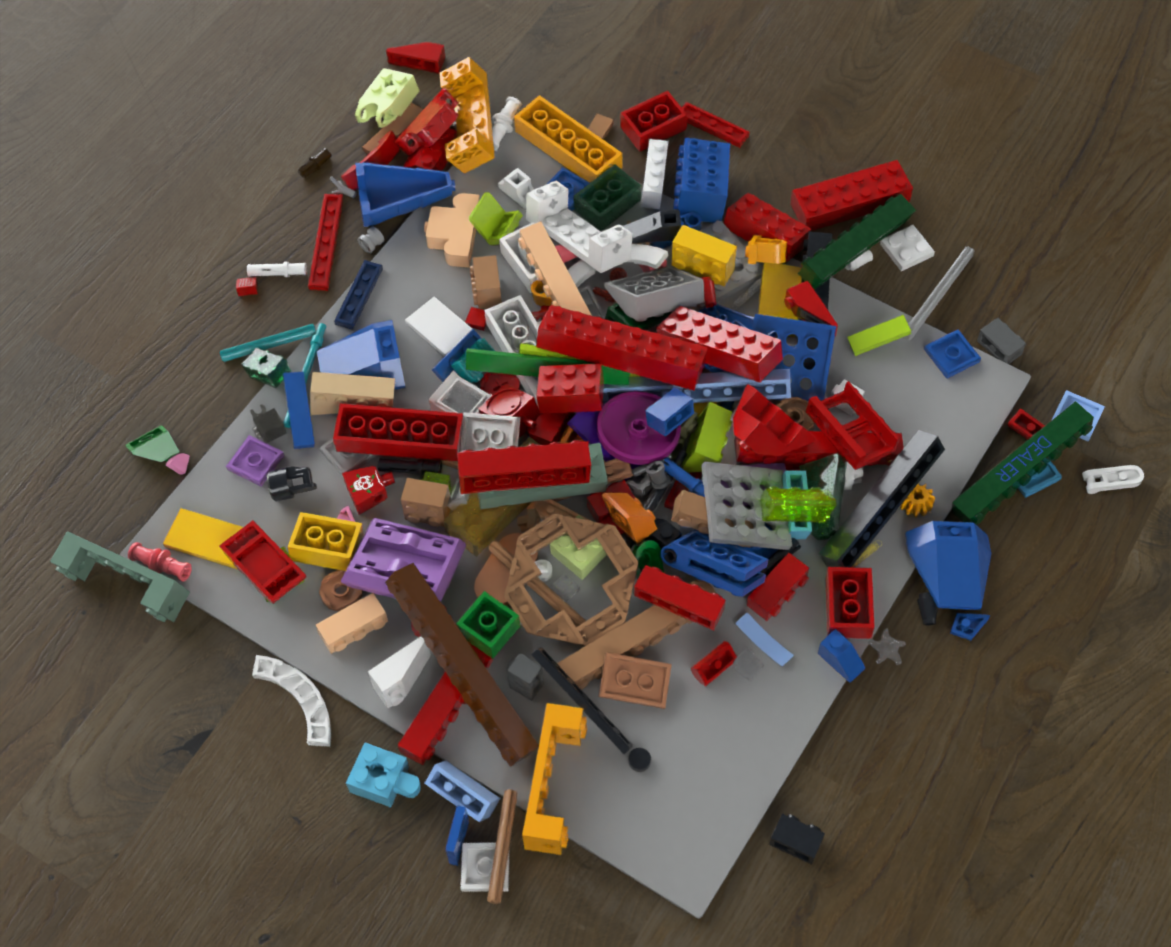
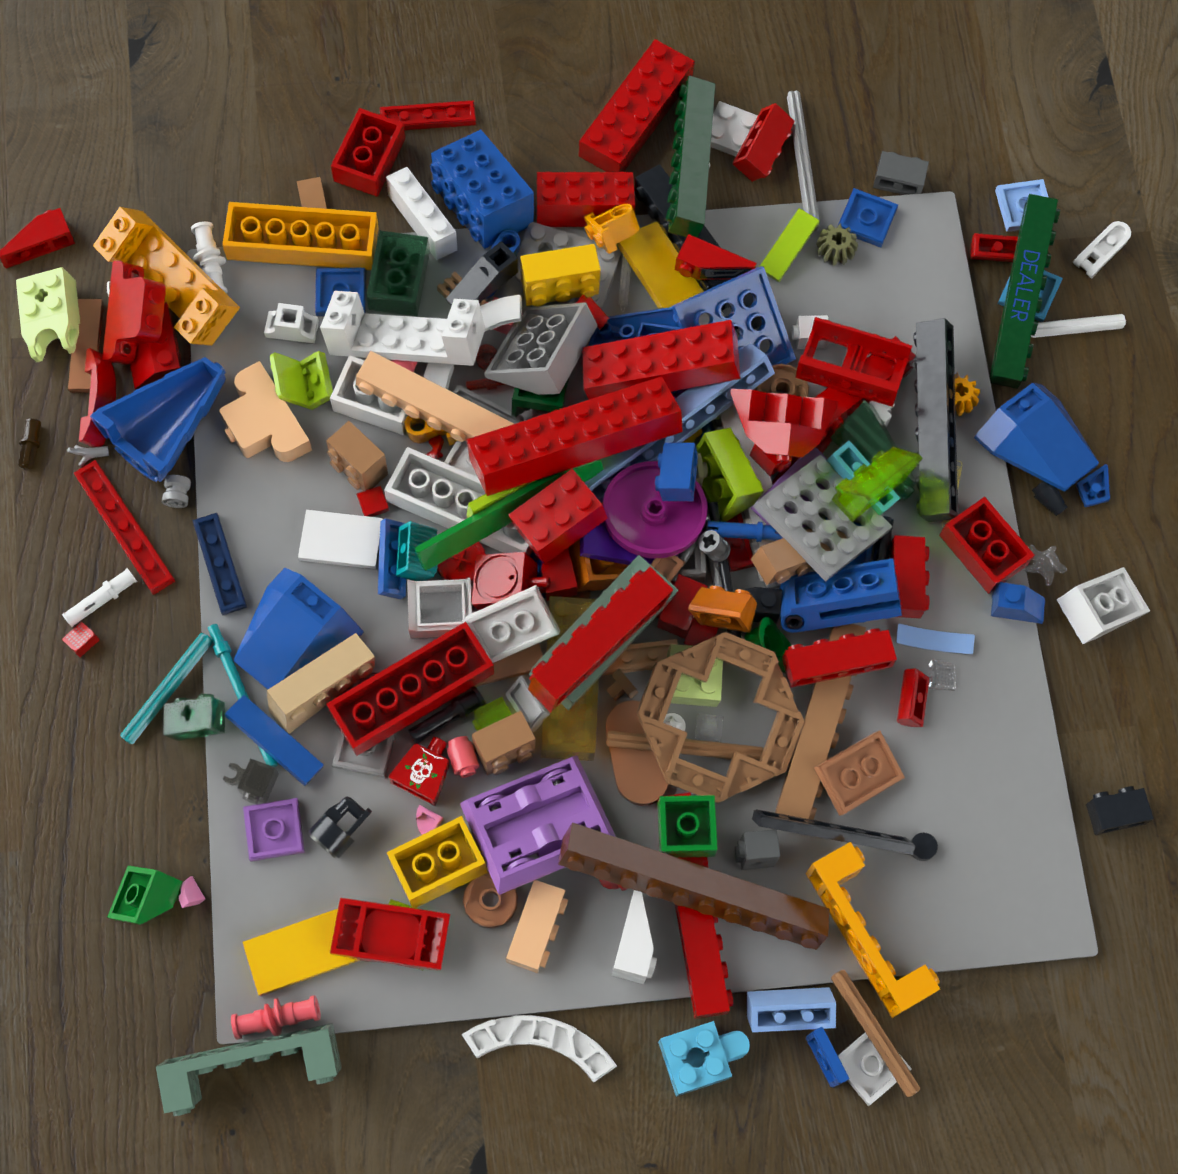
camera: 45 degrees left, 10 degrees up
(393, 497) = (462, 756): none -> coral brick
(905, 701) = (1102, 605): none -> white slope
(913, 355) = (837, 244): none -> olive gear
(919, 266) = (764, 142): none -> red brick
(1049, 515) = (1080, 325): none -> white axle

